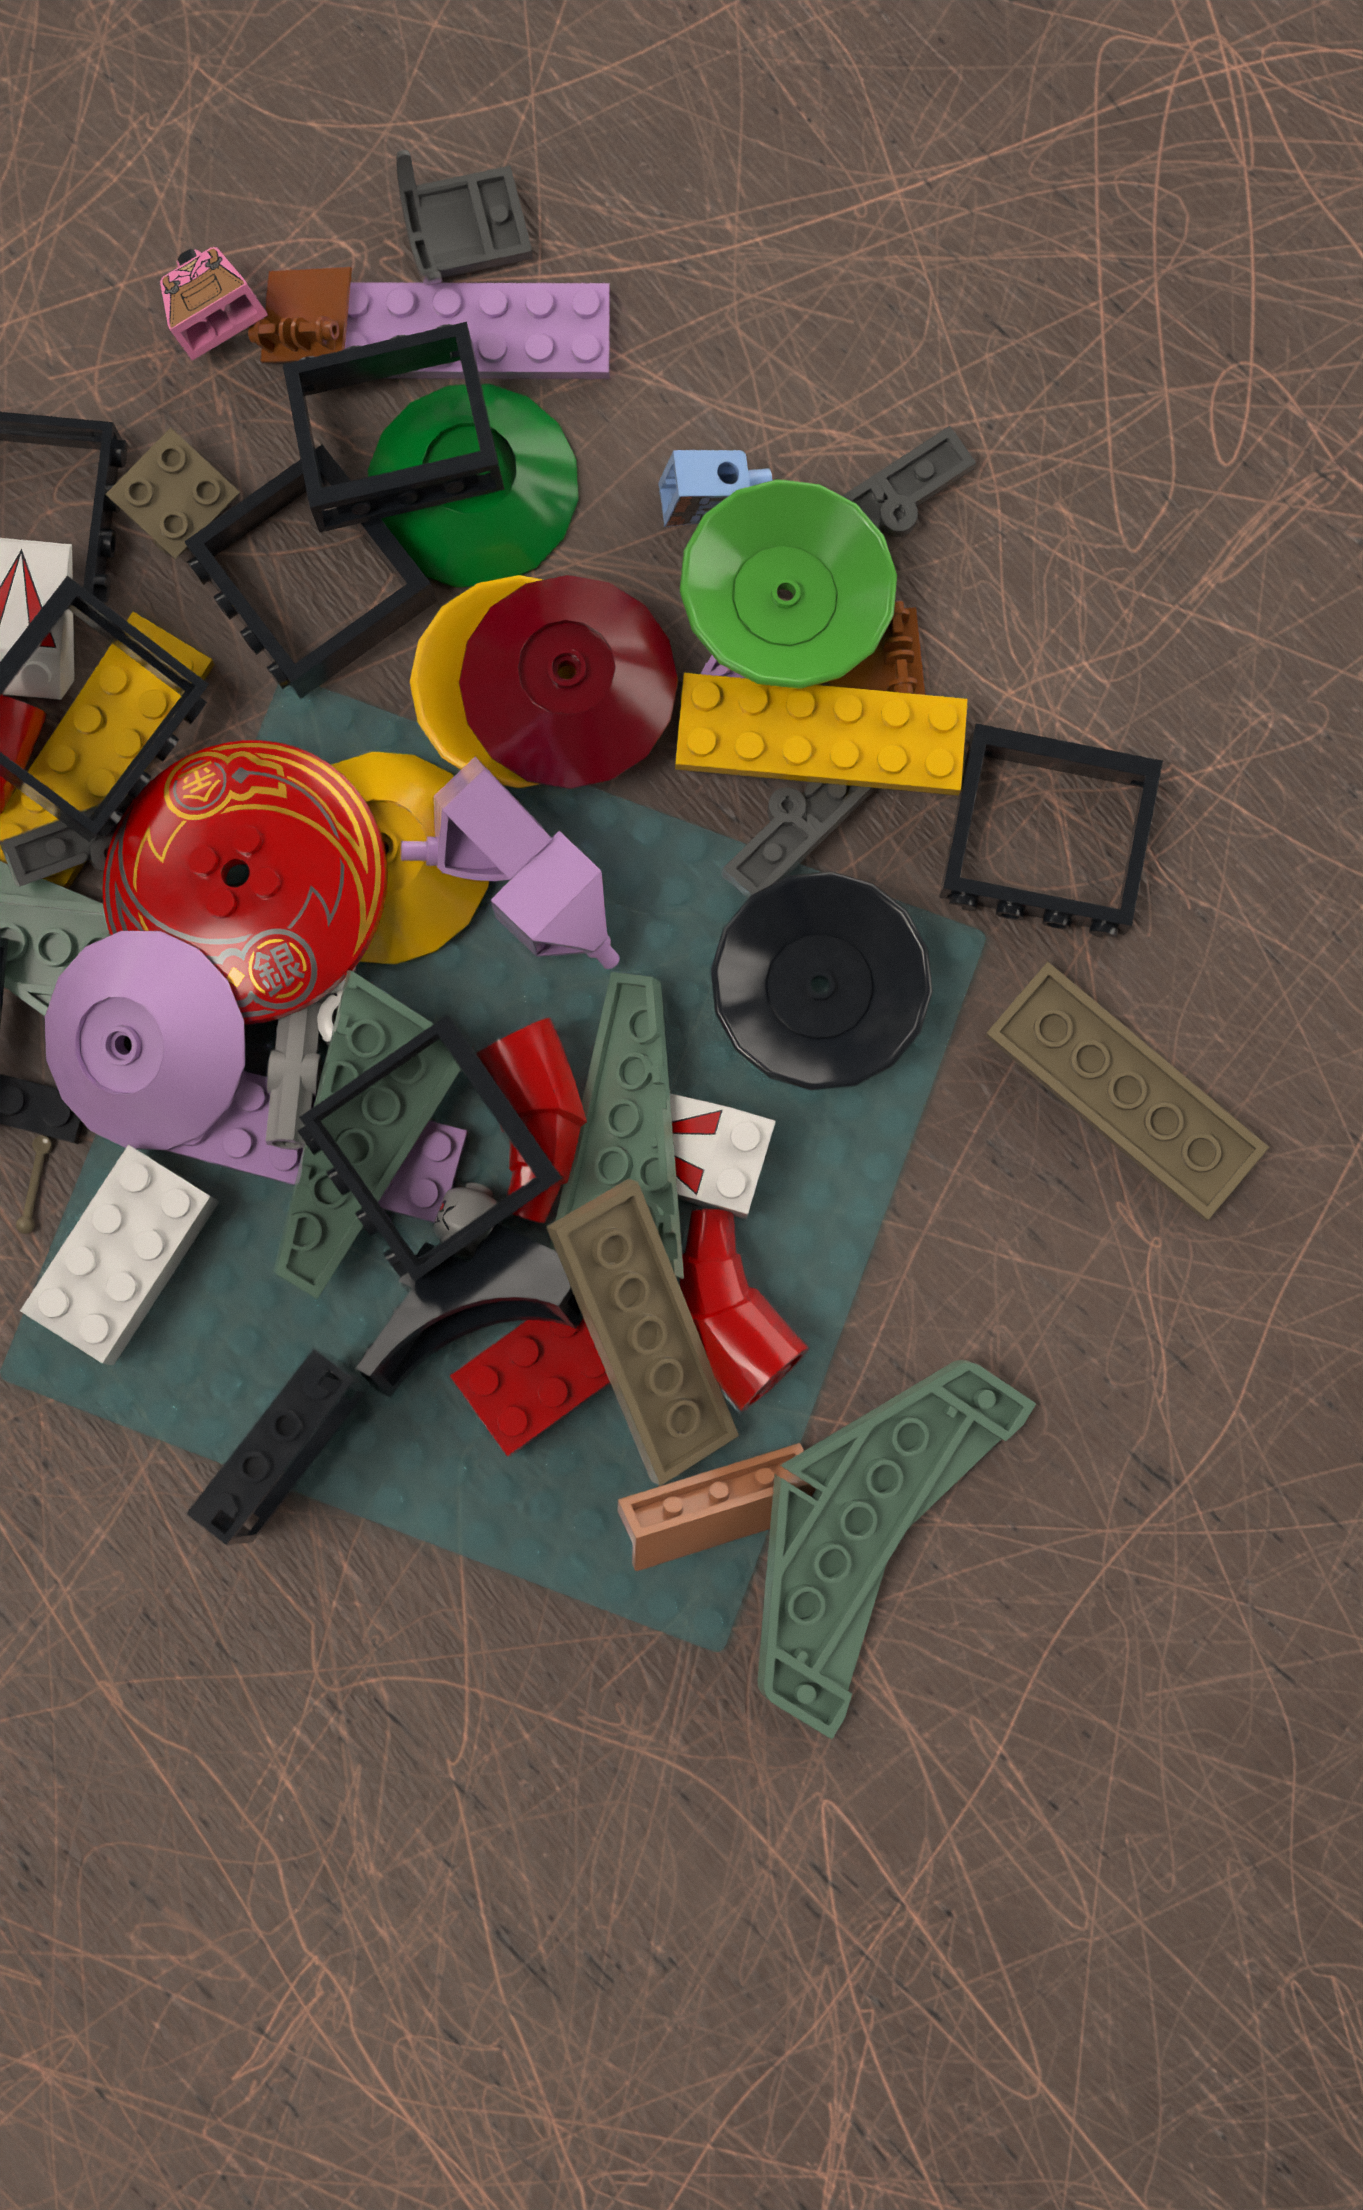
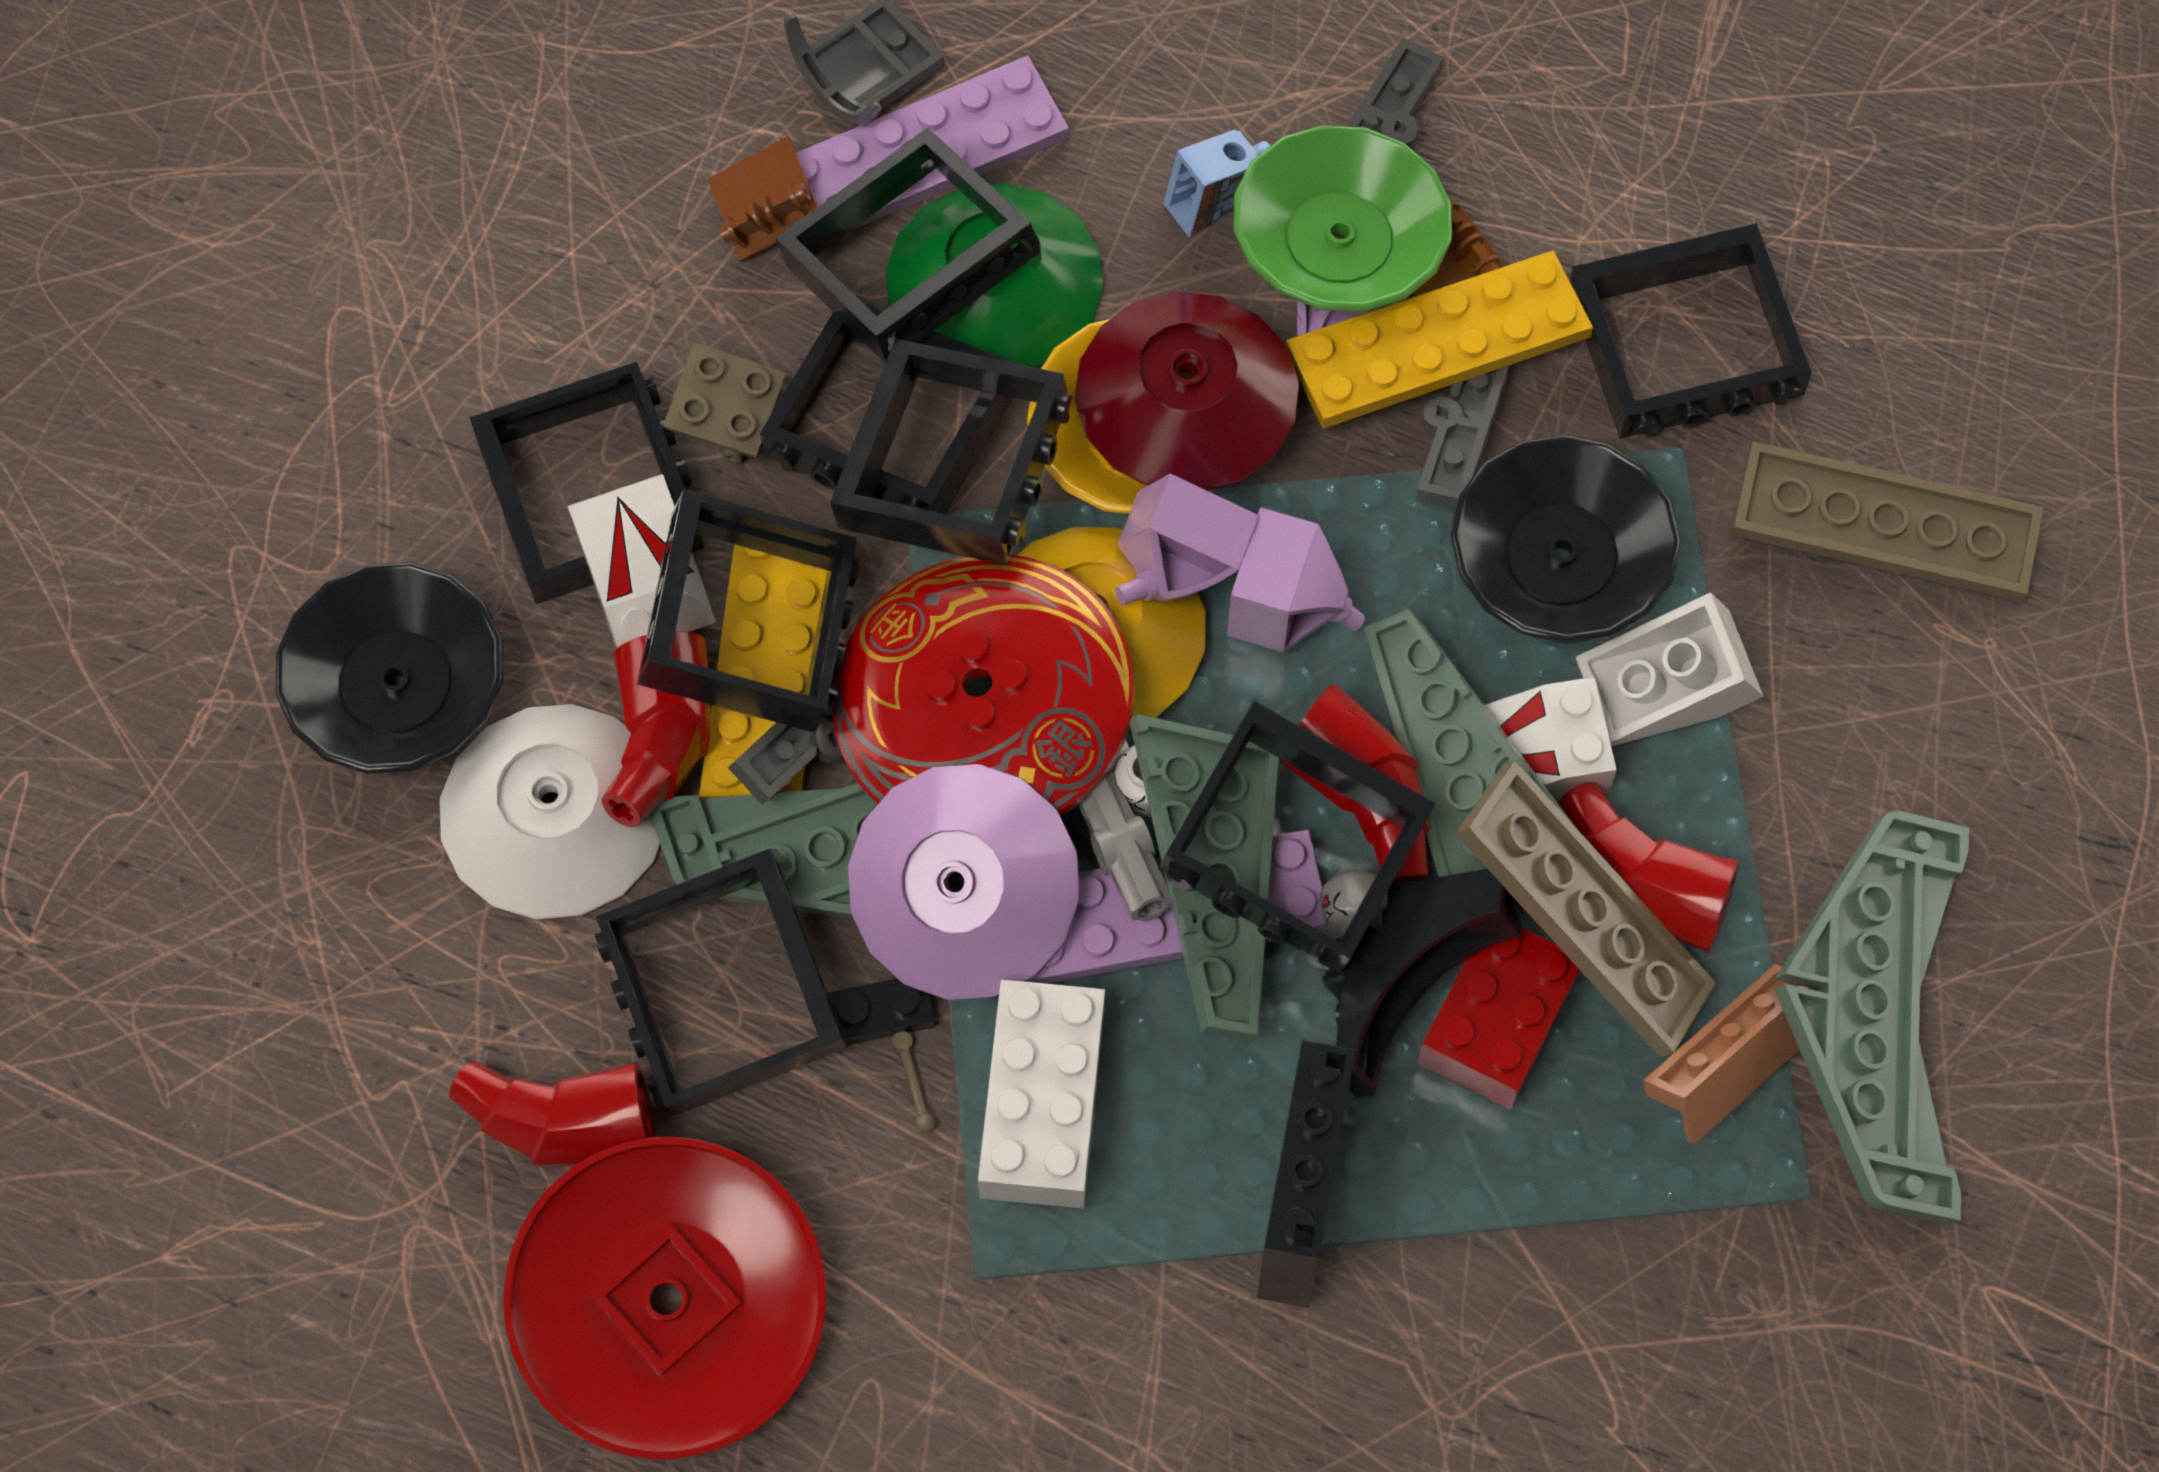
camera: 25 degrees left, 15 degrees down
(207, 301) = (671, 219): torso -> none
(274, 596) = (991, 542): none -> black window
(852, 1143) = (1672, 672): none -> white slope

